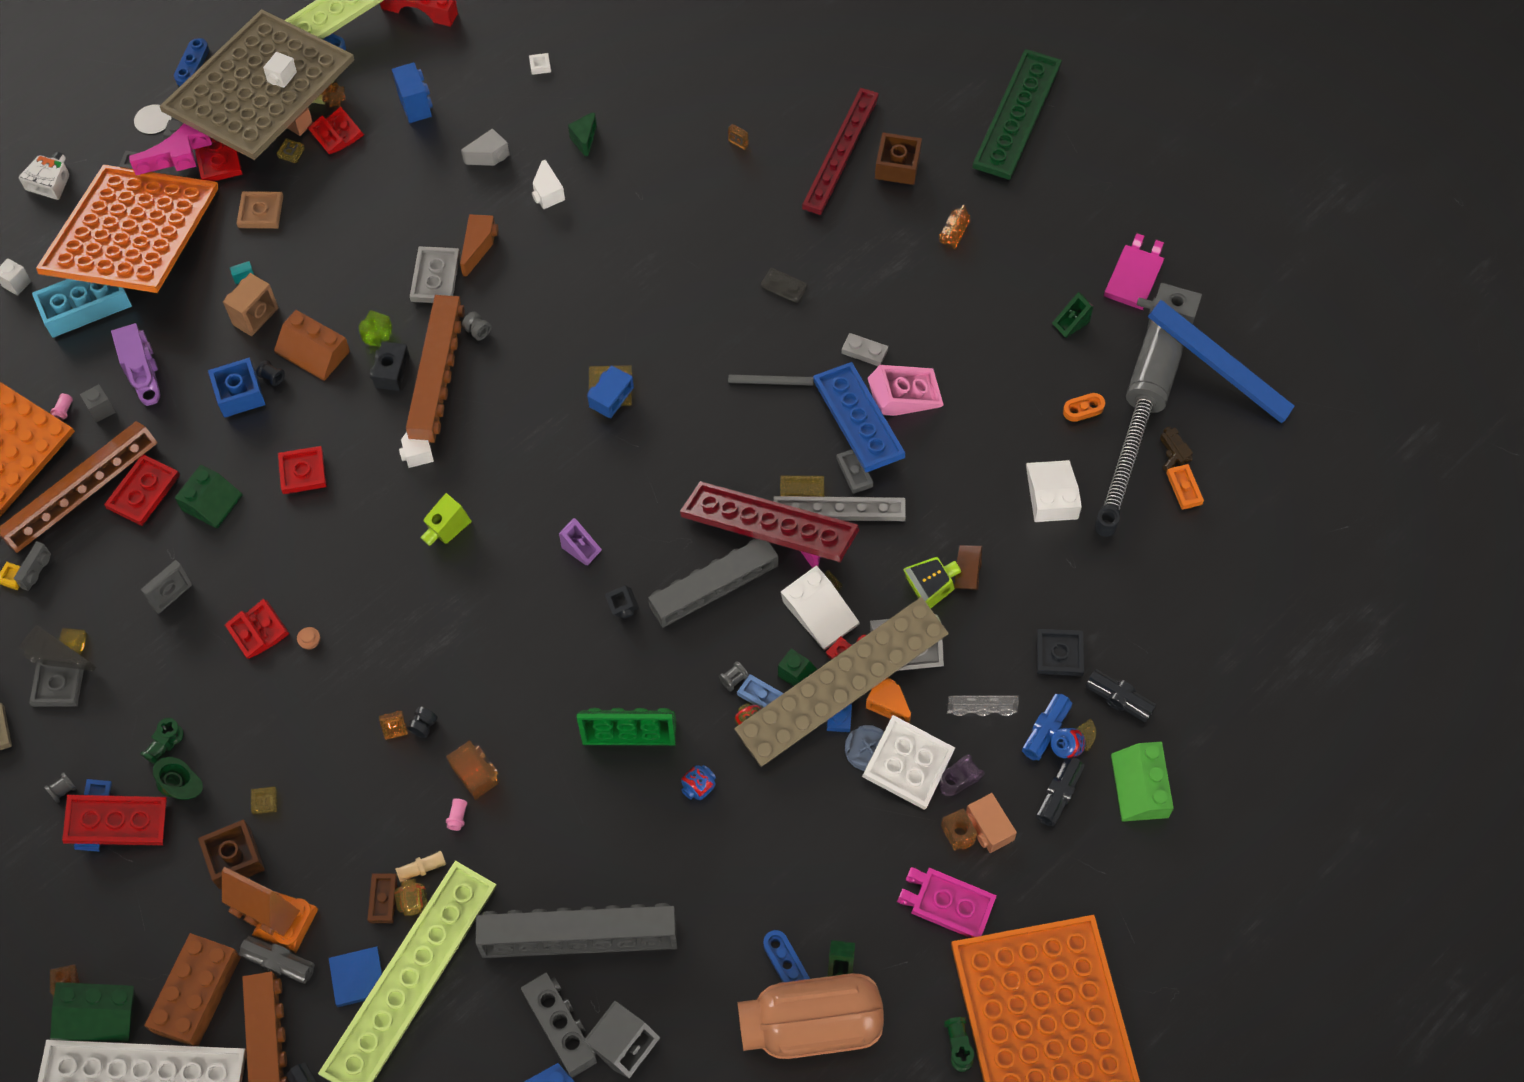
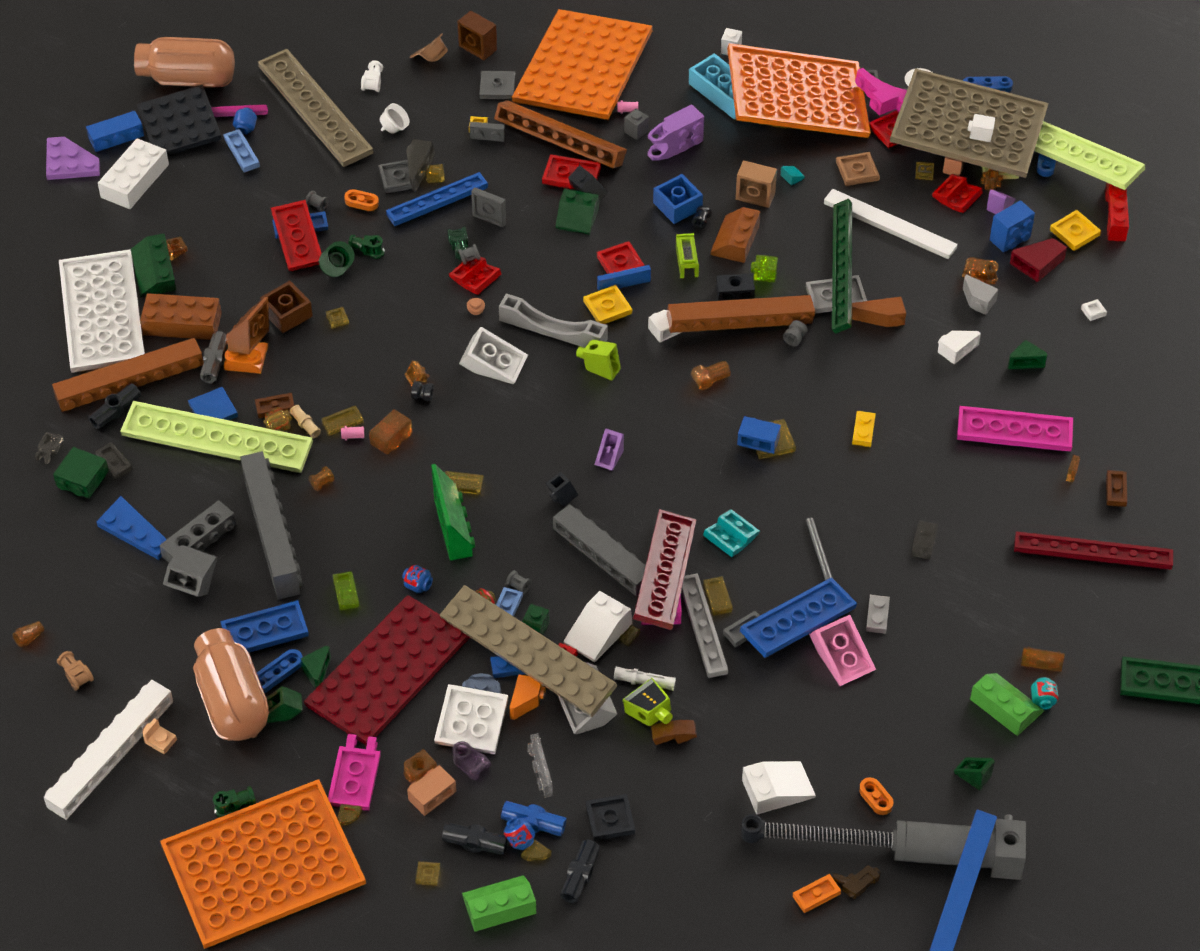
camera: 75 degrees right, 10 degrees down
(46, 176) = (834, 33): white torso -> none
(80, 733) = (361, 200): none -> orange plate
(118, 646) = (436, 199): none -> blue plate
(174, 473) = (586, 182): none -> black slope
(198, 635) = (458, 240): none -> clear green connector
(232, 624) = (469, 254): none -> dark grey bush
(322, 401) = (686, 253): none -> lime window
(331, 472) = (625, 278): none -> blue tile
(349, 586) = (521, 314): none -> light grey arch
(351, 202) = (894, 225): none -> white tile
(363, 498) = (607, 305): none -> yellow plate
(367, 97) = (998, 201): none -> medium lavender slope
(398, 635) = (493, 357): none -> white slope
(405, 254) = (842, 266): none -> dark green plate
(430, 824) = (348, 417): none -> clear yellow tile
(431, 46) = (1075, 230): none -> yellow plate
(453, 139) = (980, 270): none -> clear orange piece
(459, 86) = (1038, 258): none -> dark red slope
(504, 422) = (706, 376): none -> clear orange piece
(516, 862) = (321, 478): none -> clear orange bush
(568, 707) = (466, 482): none -> clear yellow tile
(624, 299) = (863, 428): none -> yellow plate
(671, 170) = (1015, 428): none -> dark pink plate
(691, 865) = (345, 590): none -> clear neon green plate
(721, 967) = (268, 627): none -> blue plate
(724, 454) = (731, 533): none -> teal slope
(772, 110) = (1116, 488): none -> reddish brown plate
(794, 917) = (316, 665): none -> dark green slope
(814, 842) = (386, 670): none -> dark red plate
(889, 587) = (639, 677): none -> white pin
(898, 158) = (1098, 593): reddish brown brick -> none
(998, 920) = (348, 814): none -> clear yellow tile
(1000, 235) = (1044, 692): none -> teal head
(1001, 271) = (1005, 703): none -> bright green slope
(1091, 850) = (427, 873): none -> clear yellow tile
(1135, 273) = (1053, 817): dark pink tile -> none

